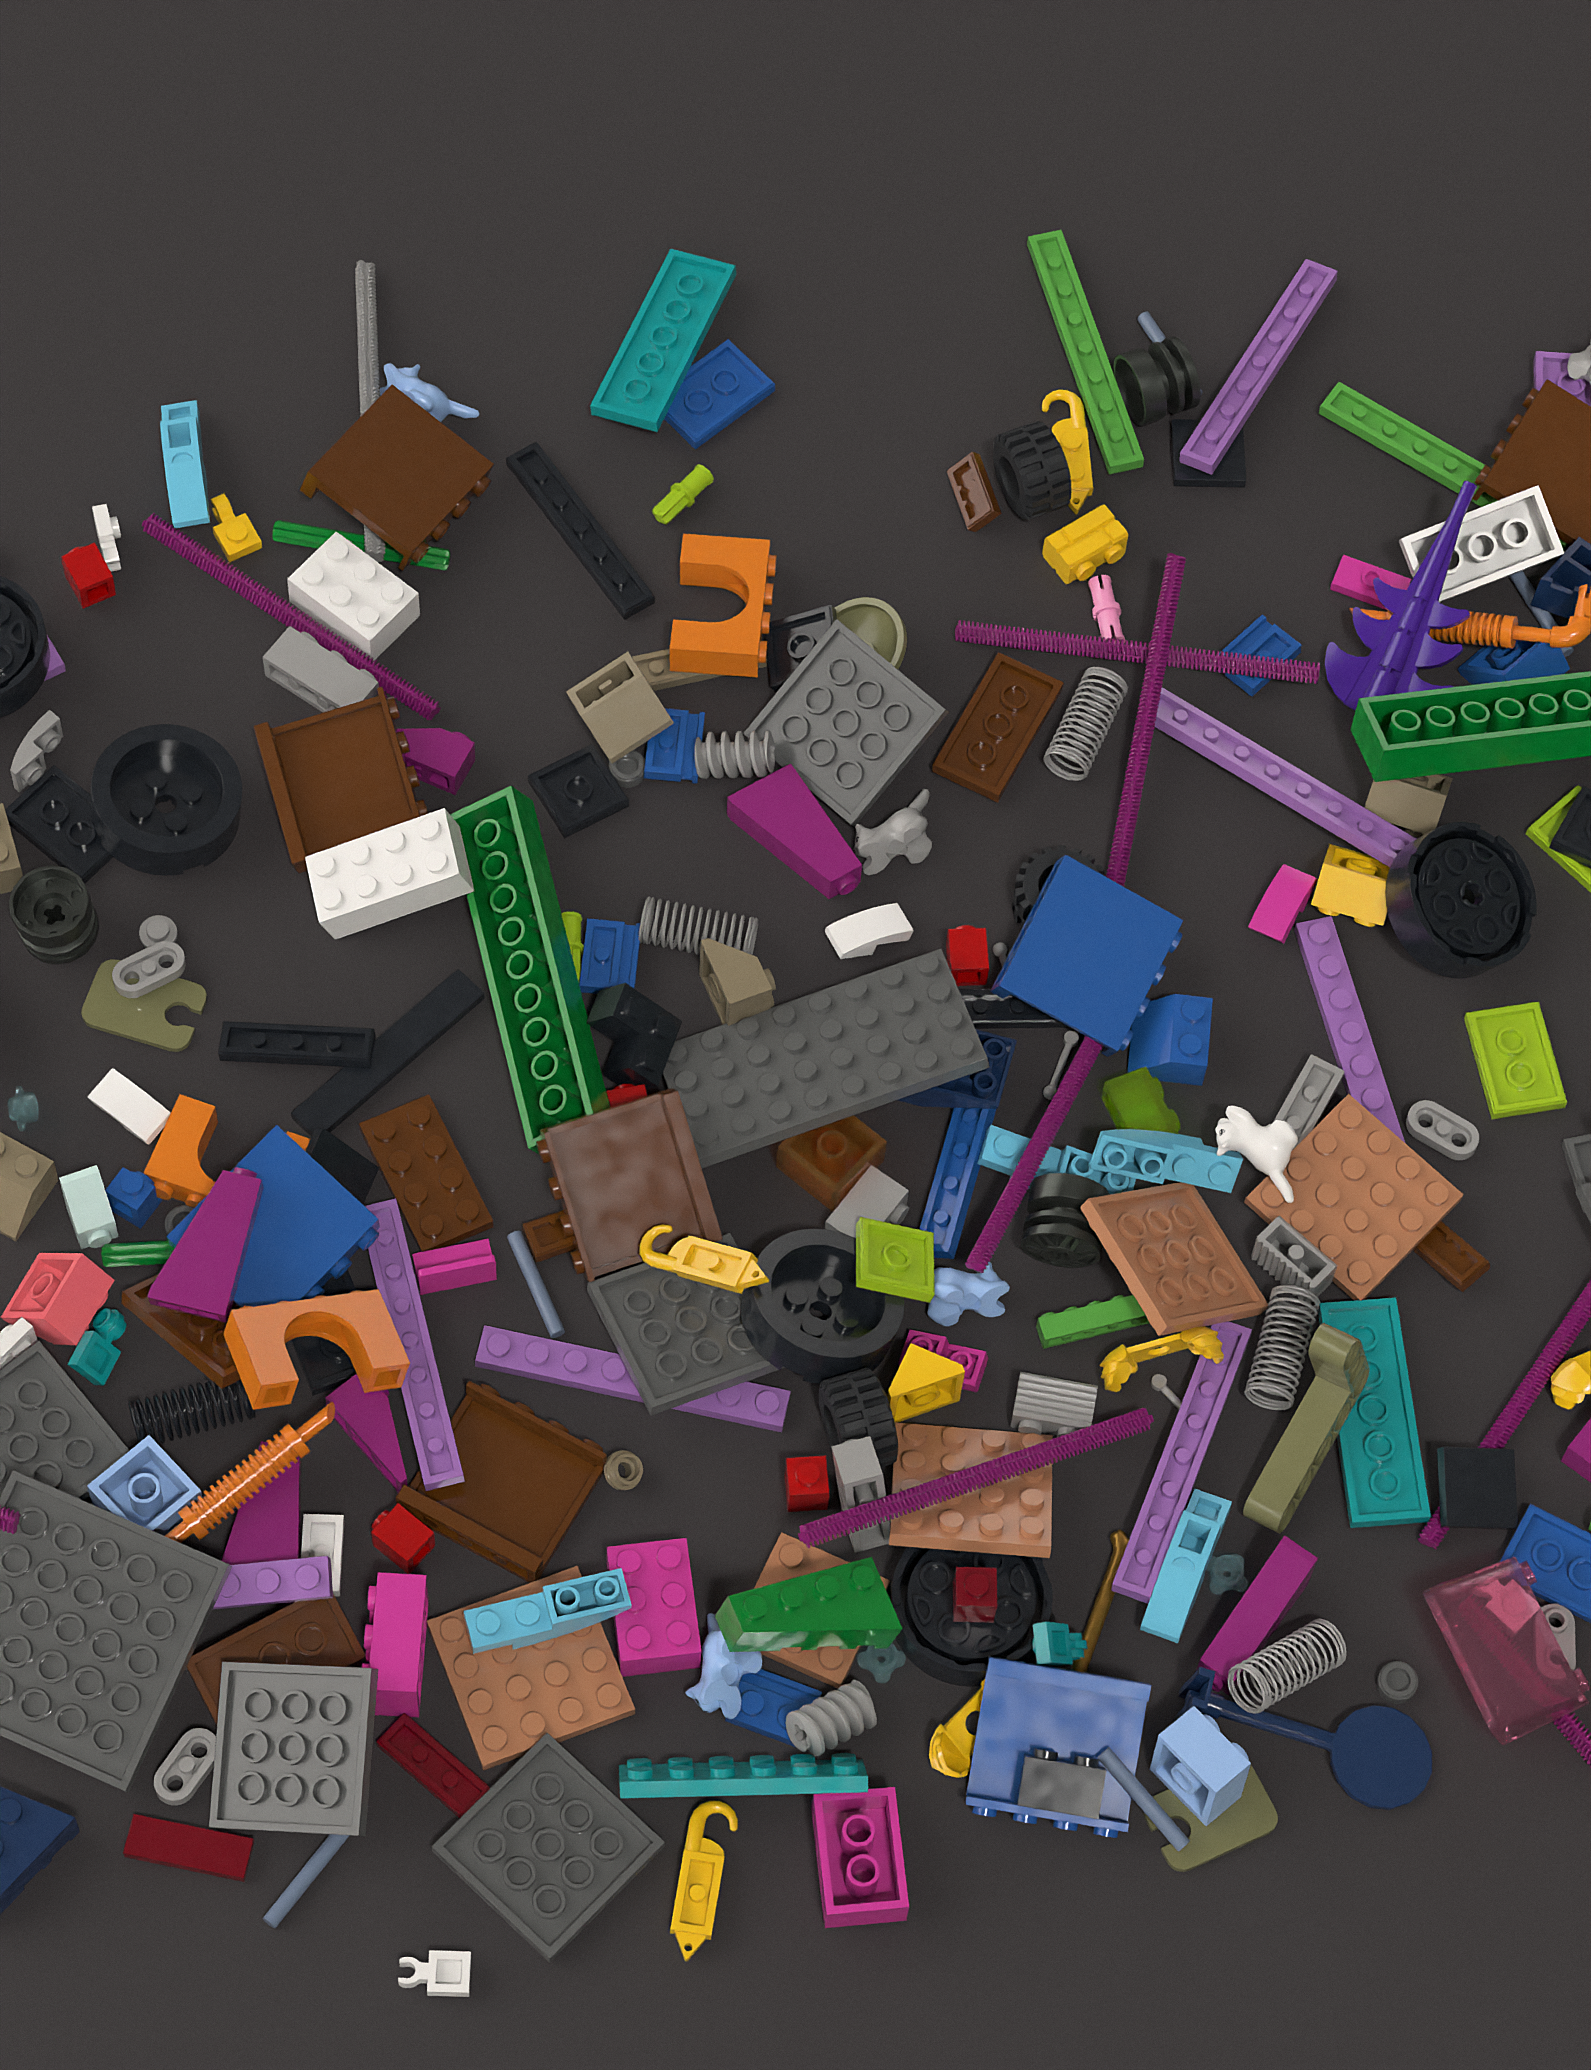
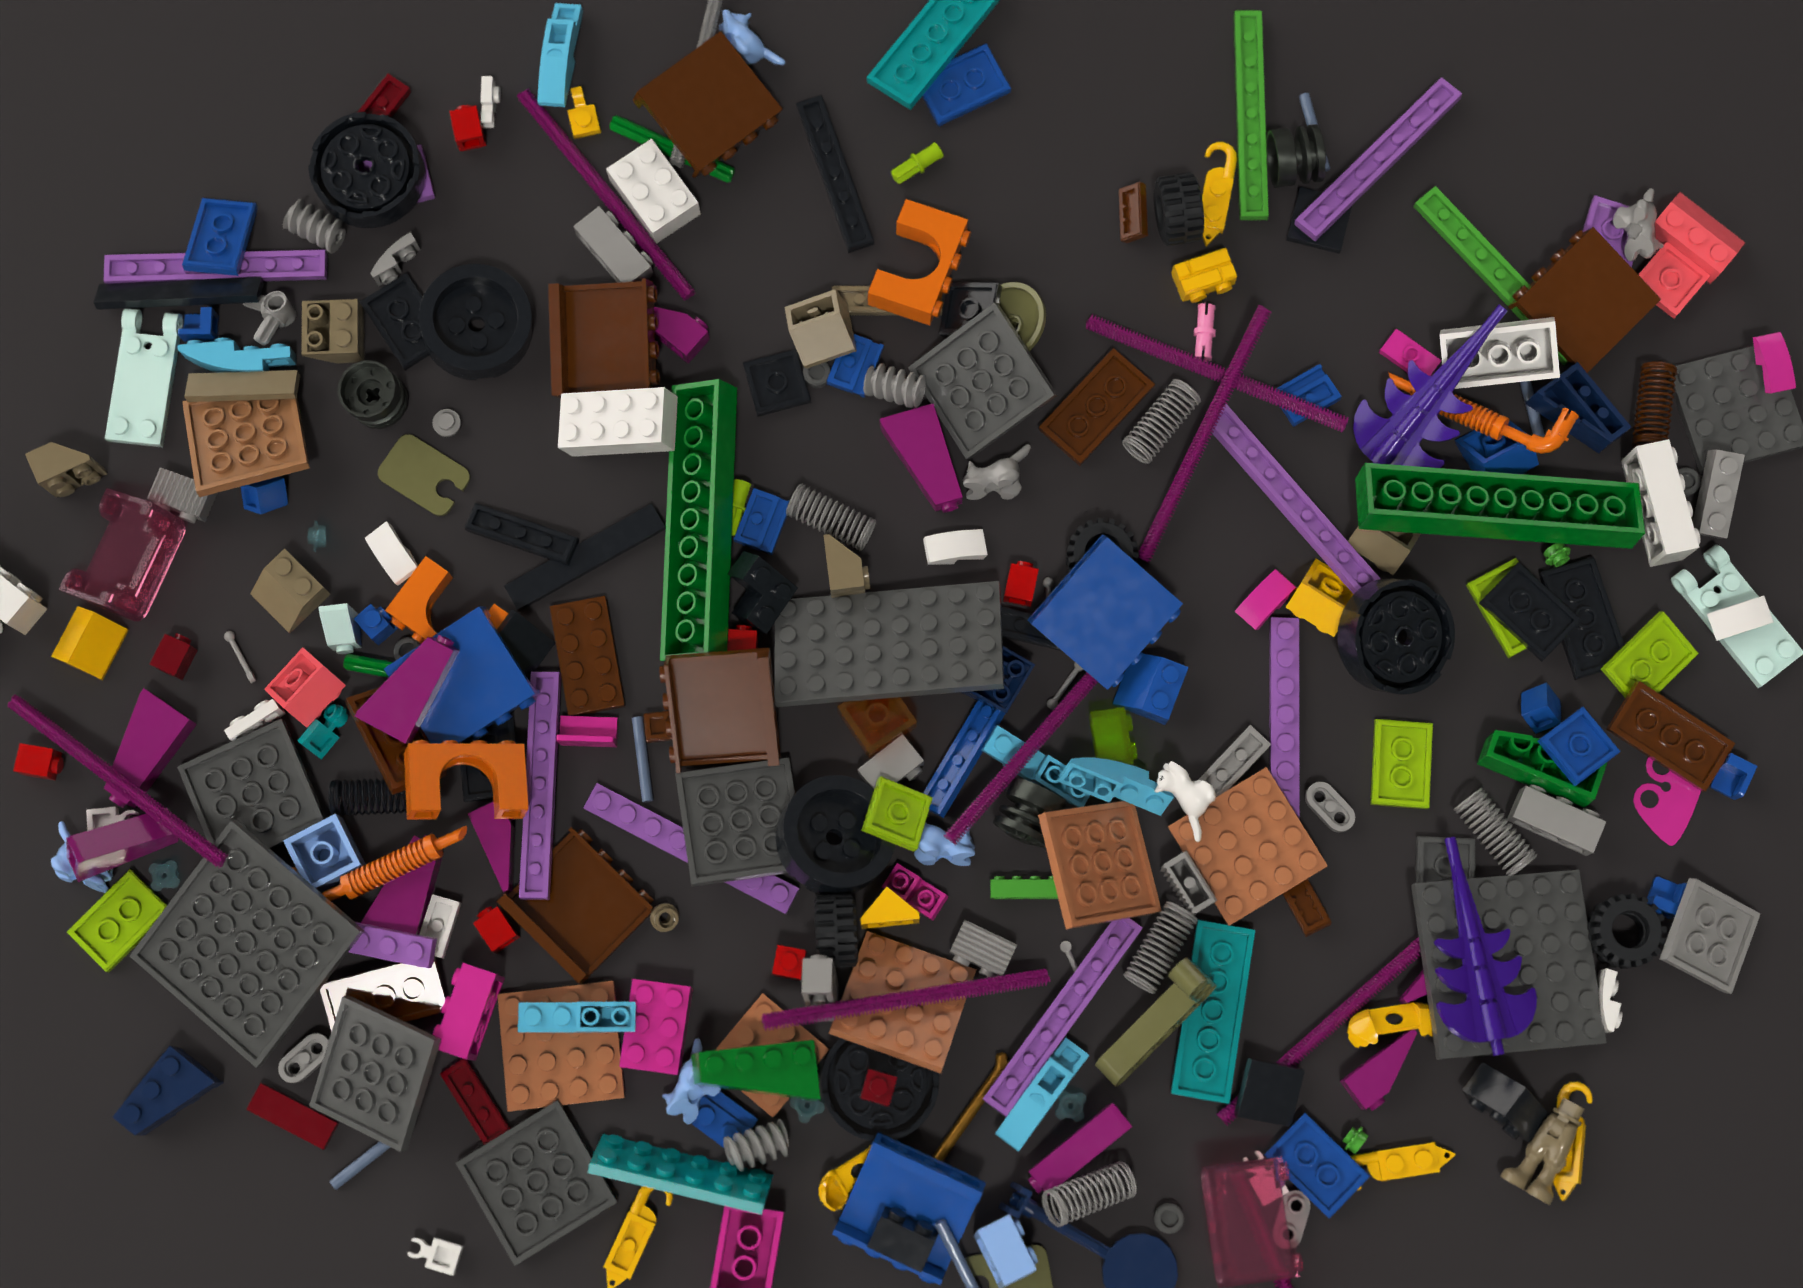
camera: 20 degrees right, 15 degrees up
(146, 967) = (431, 449): light grey plate -> none
(704, 1261) = (758, 783): yellow plate -> none
(1055, 1644) = (928, 1135): teal plate -> none
(1123, 1360) = (1042, 926): yellow piece -> none

